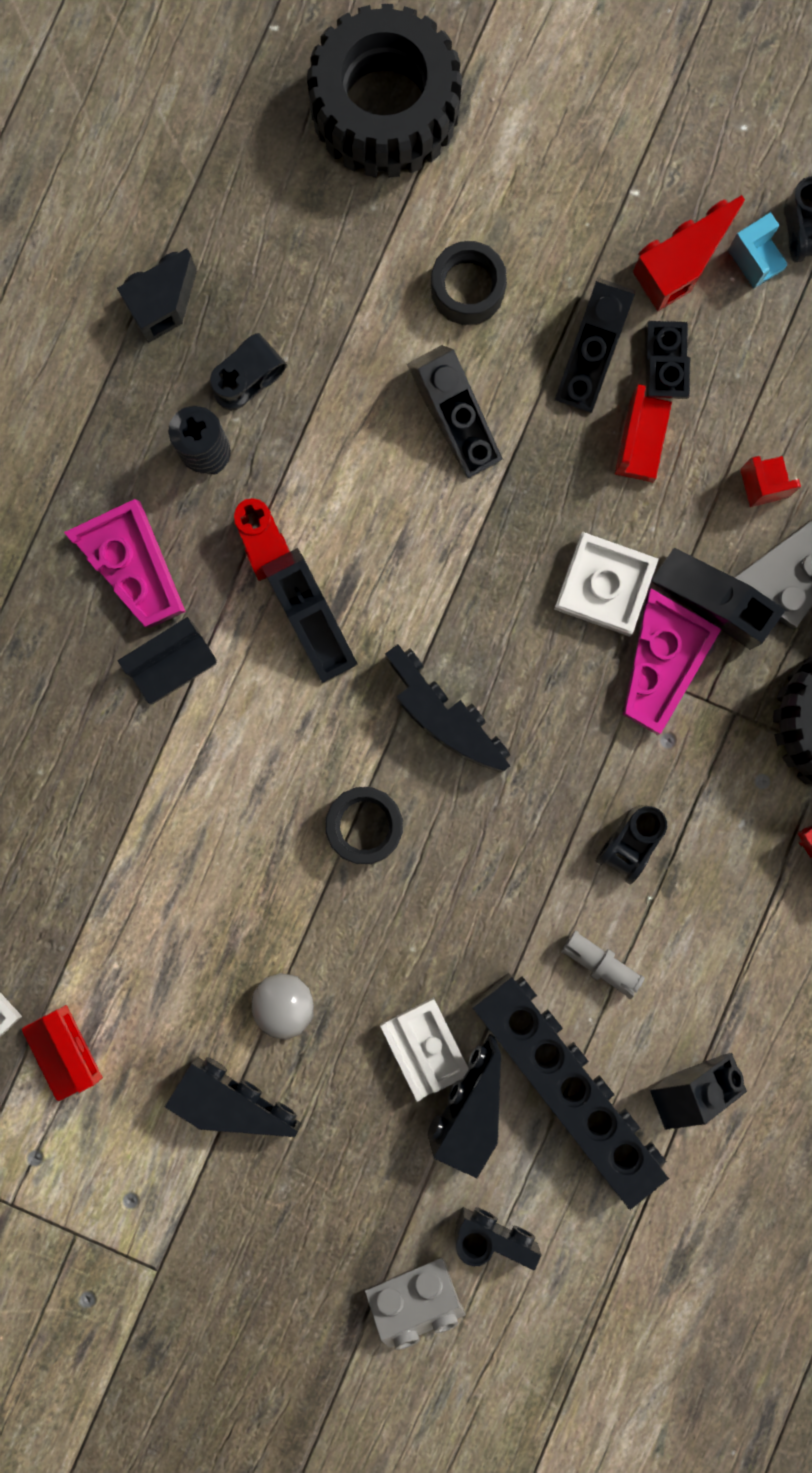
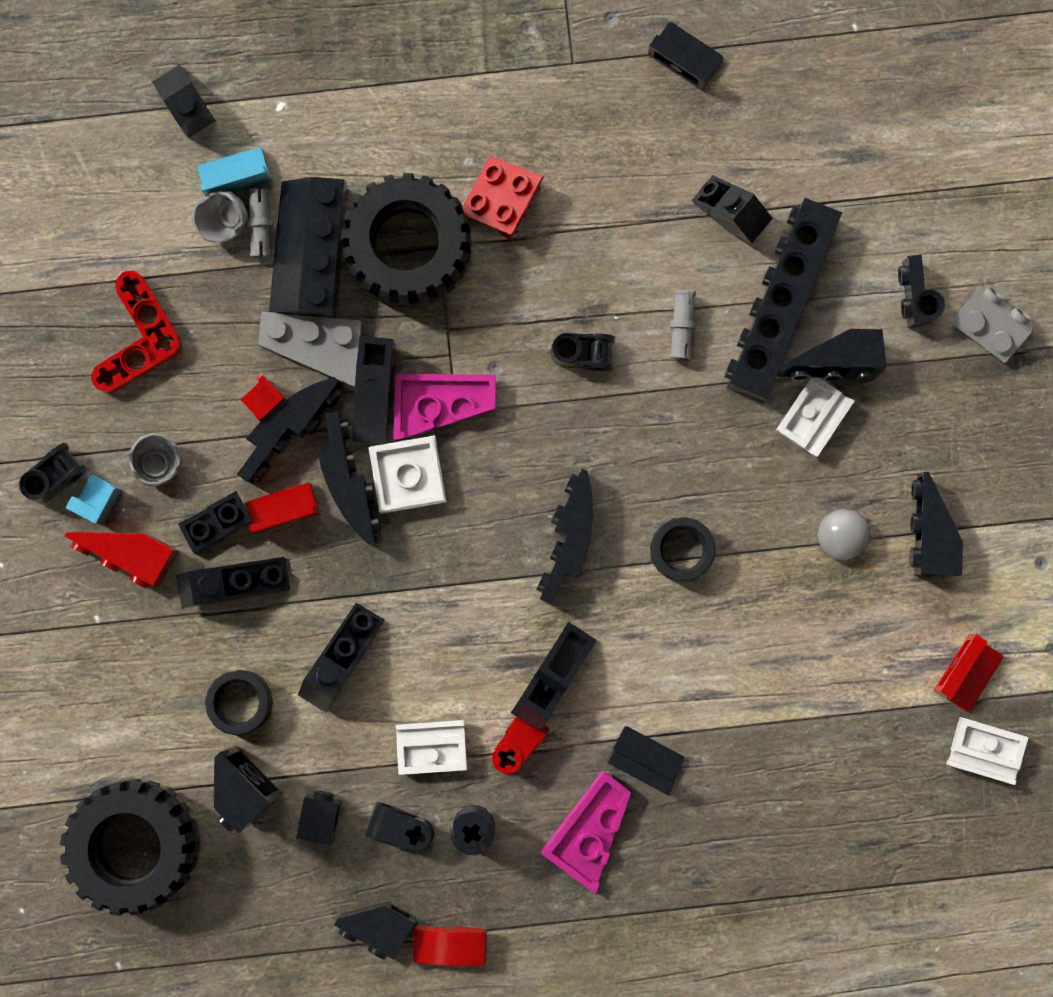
camera: 115 degrees left, 0 degrees up
(94, 359) = (450, 946): none -> red slope
(304, 297) = (319, 817): none -> black brick
(310, 450) = (431, 747): none -> white plate
(378, 223) = (240, 790): none -> black slope
(619, 511) = (349, 493): none -> black slope
(735, 501) = (296, 414): none -> black slope
(769, 332) = (154, 459): none -> light grey hair

